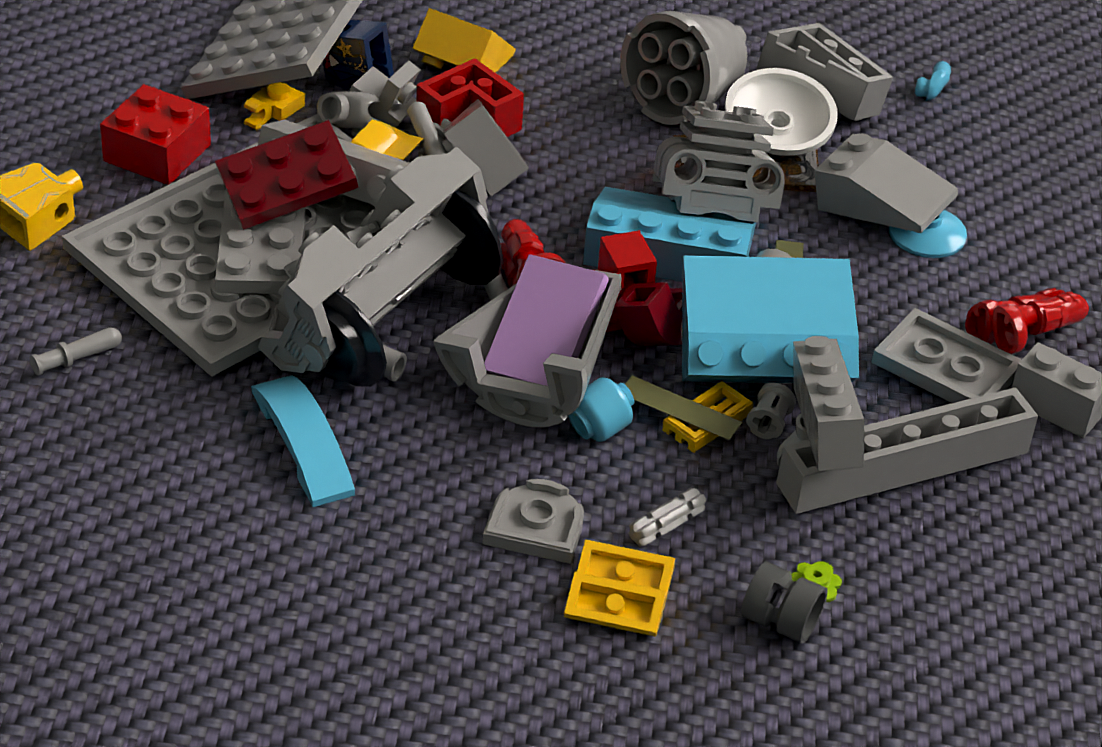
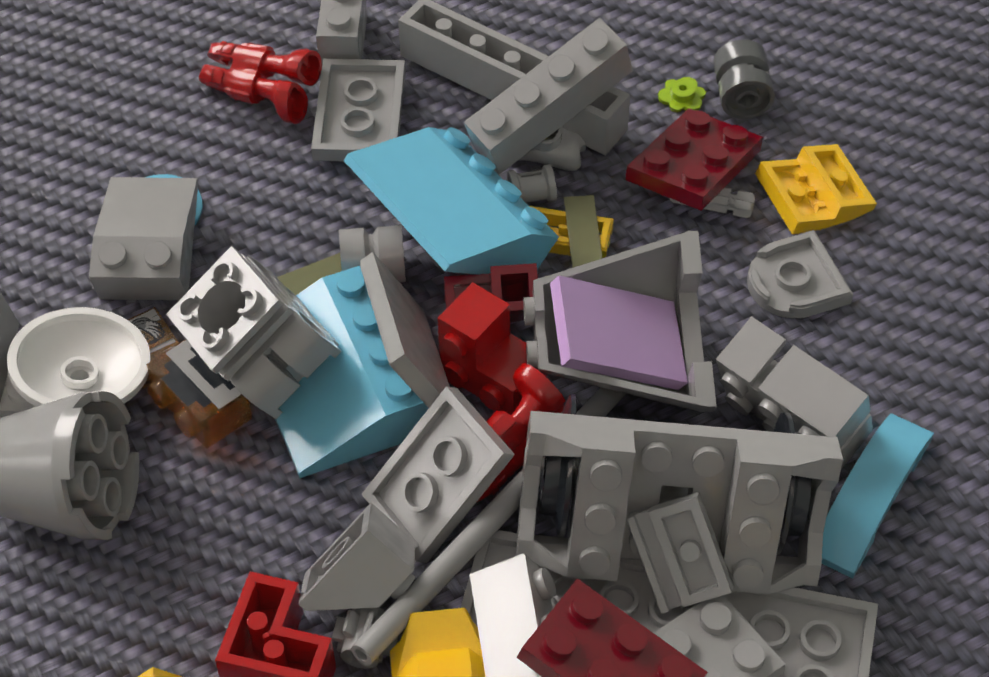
camera: 120 degrees left, 10 degrees up
(406, 401) = (798, 384): none -> light grey piece
(537, 204) = (439, 472): none -> light grey plate
(620, 202) = (404, 331): none -> light grey tile
(714, 516) = (694, 158): none -> dark red plate

